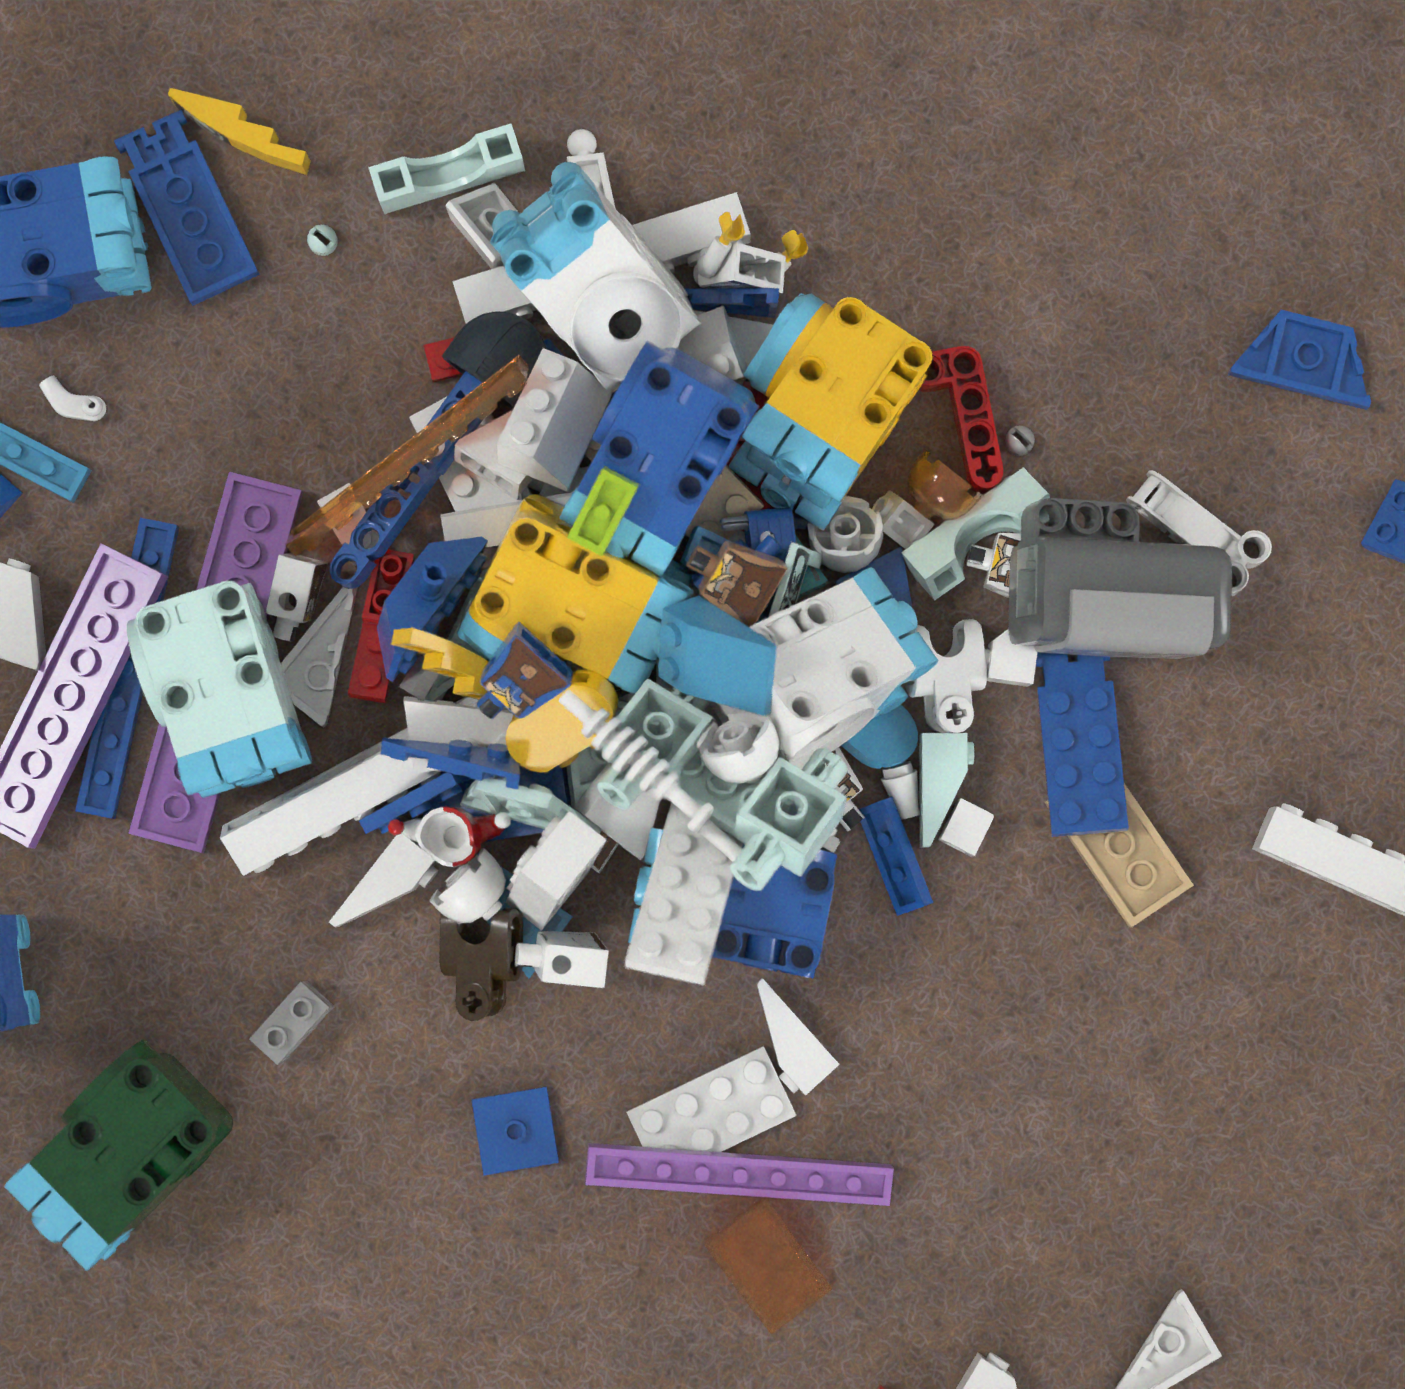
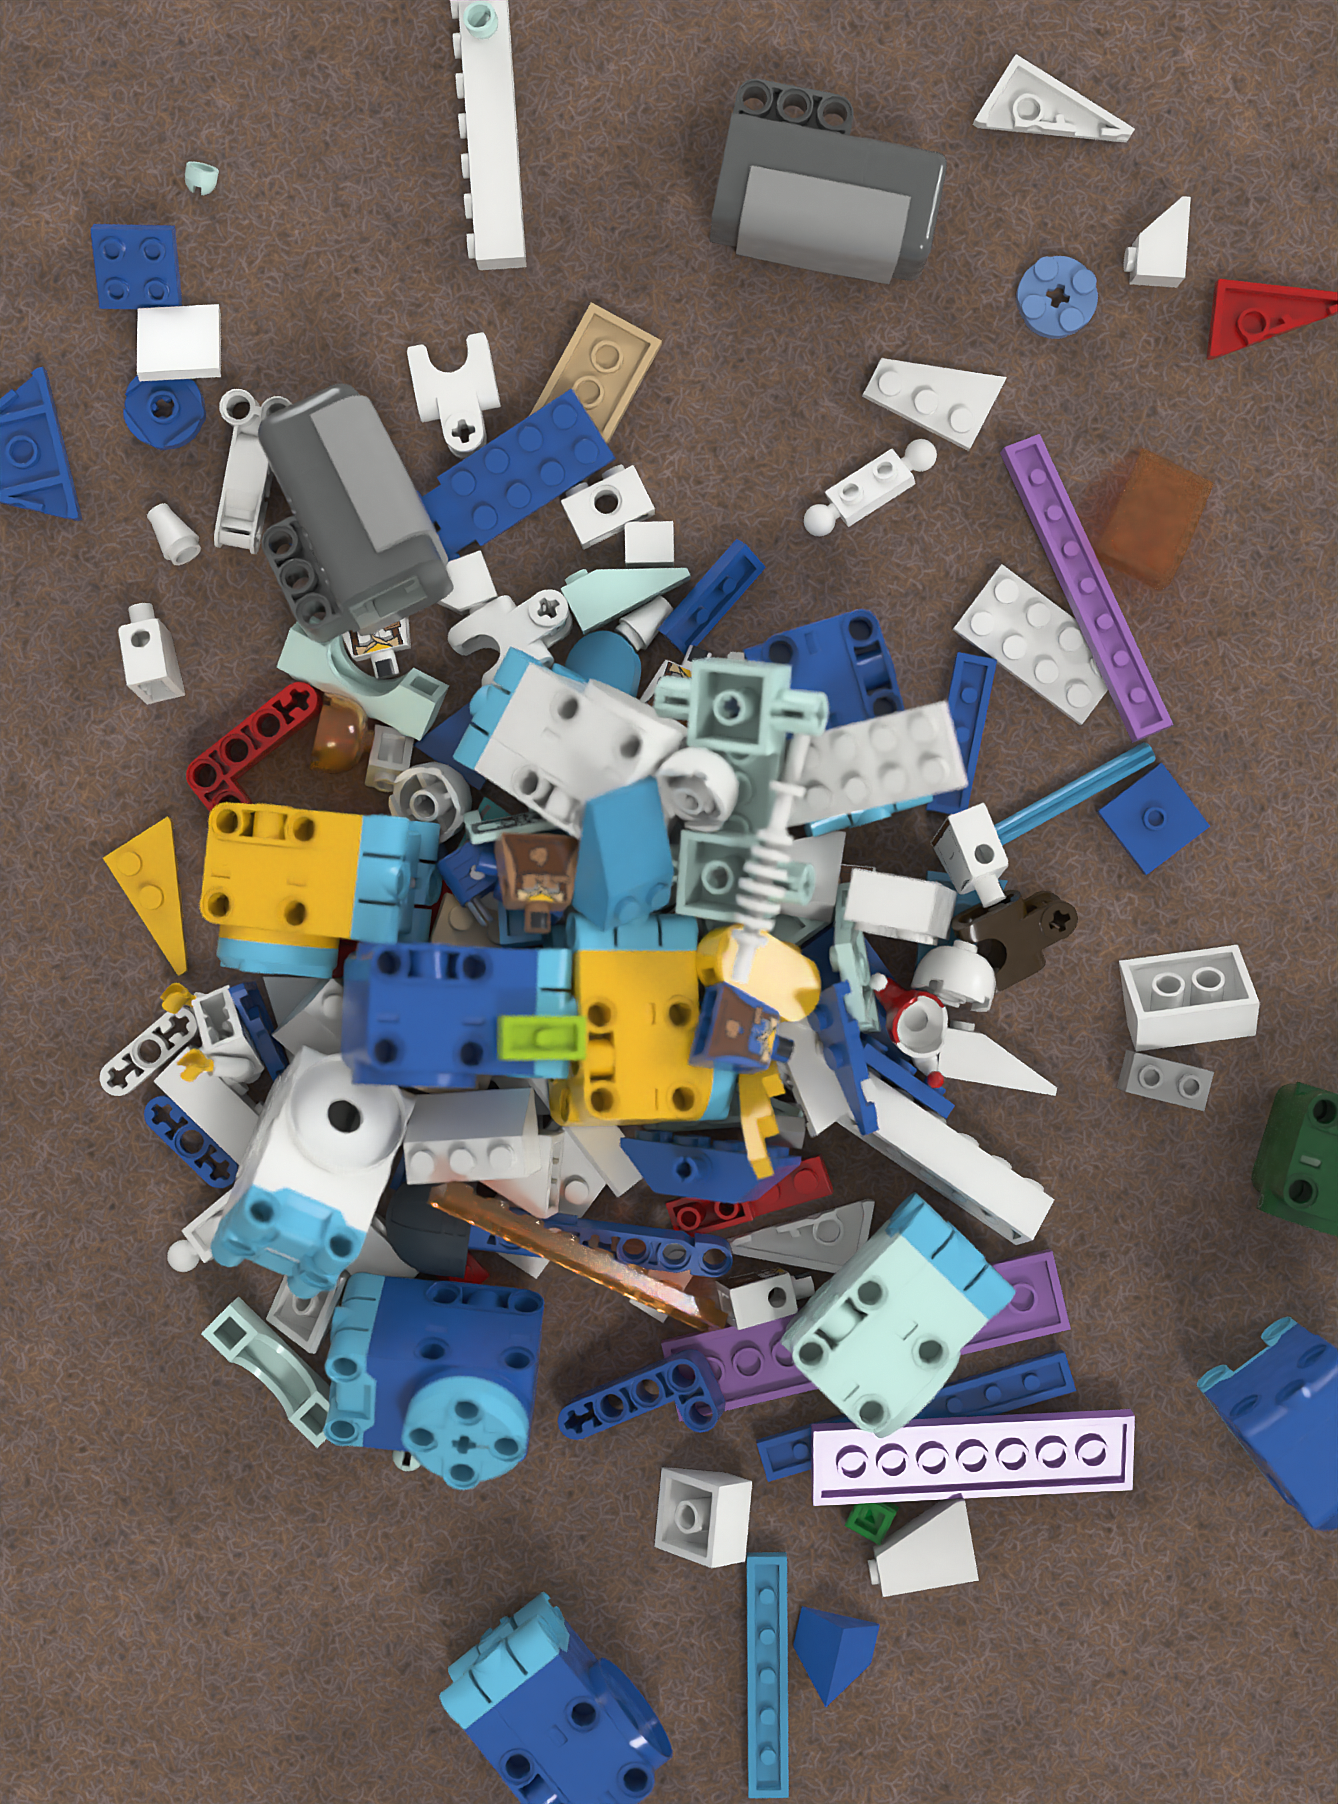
camera: 110 degrees left, 5 degrees up
(61, 587) = (872, 1519): none -> green tile
(71, 405) = (694, 1604): white arm -> none
(140, 451) = (703, 1516): none -> white slope
(187, 209) = (447, 1599): blue hinge -> none
(229, 124) = (344, 1604): yellow slope -> none
(265, 445) = (639, 1401): none -> blue beam
(349, 1079) = (1188, 998): none -> white slope
(377, 292) = (436, 1373): none -> piece
(572, 1072) = (1074, 792): none -> dark azure axle
(674, 1009) = (968, 707): none -> blue plate
(677, 185) = (175, 1143): none -> blue beam
(766, 175) = (134, 1078): none -> white beam
(796, 1048) = (941, 593): white slope -> none
(906, 276) = (149, 877): none -> yellow wing
(918, 1038) = (870, 487): none -> white plate
(965, 1134) = (935, 398): none -> white wing
(998, 1261) = (1036, 307): none -> medium blue plate
(1006, 830) = (595, 526): none -> white brick
(1015, 445) = (258, 687): light grey hinge -> none
(1085, 369) = (149, 656): none -> white torso
(1171, 733) = (456, 395): none -> white piece
(1175, 441) = (174, 536): none -> white cone
(1183, 1121) = (823, 197): none -> piece
(1296, 470) = (164, 432): none -> blue plate
(1332, 527) = (179, 342): none -> white tile

